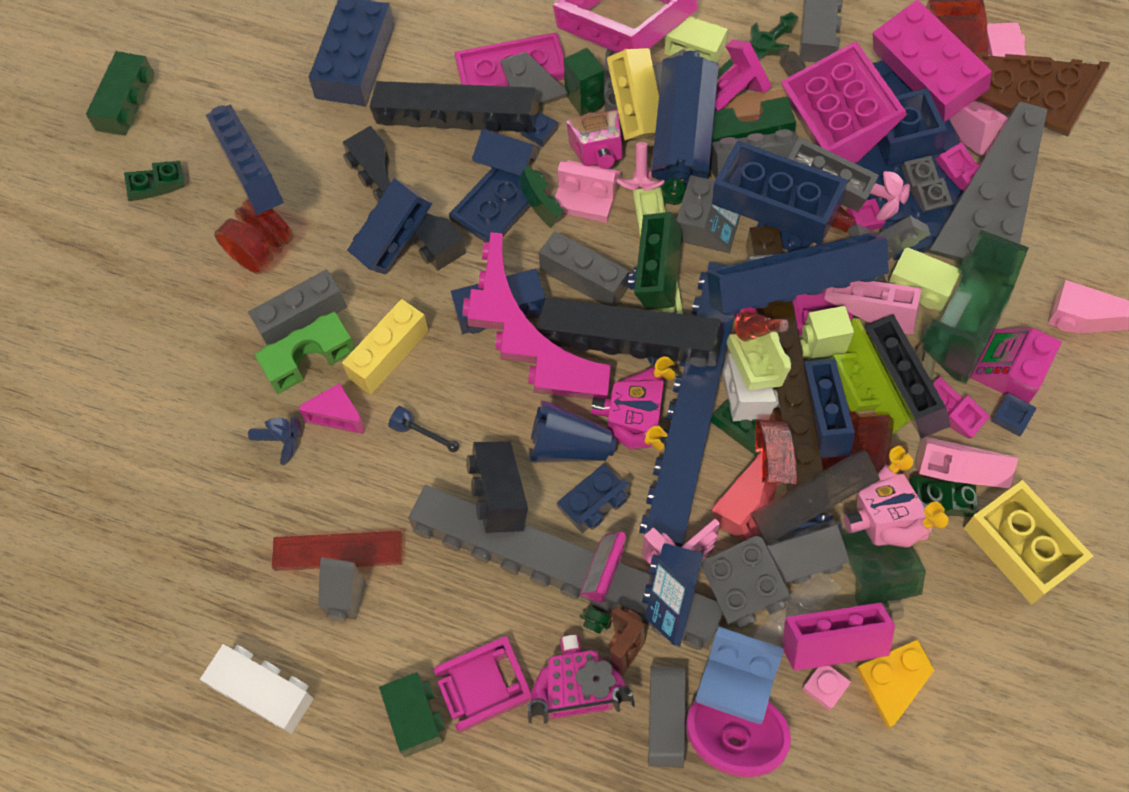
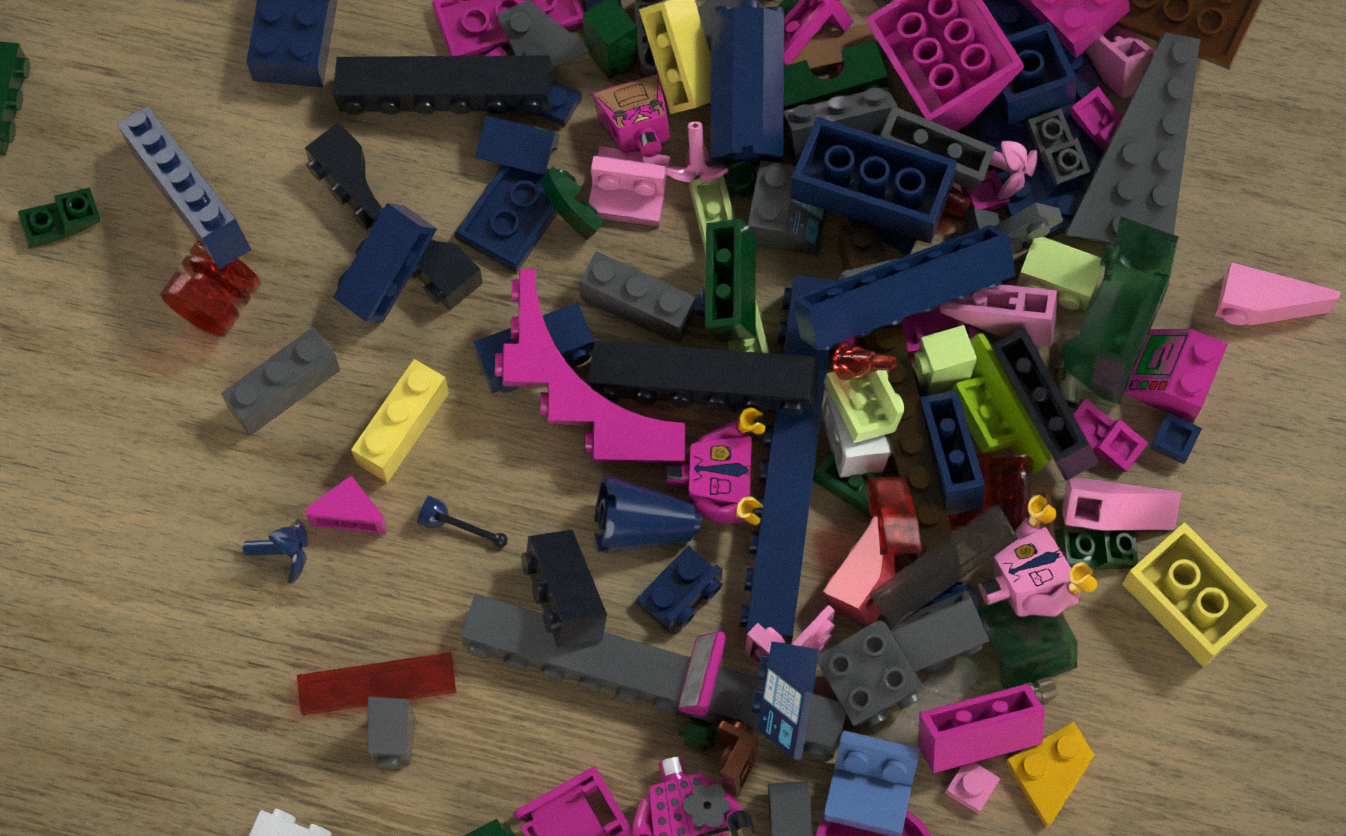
camera: 10 degrees left, 5 degrees up
(281, 359) = (320, 414): bright green arch -> none

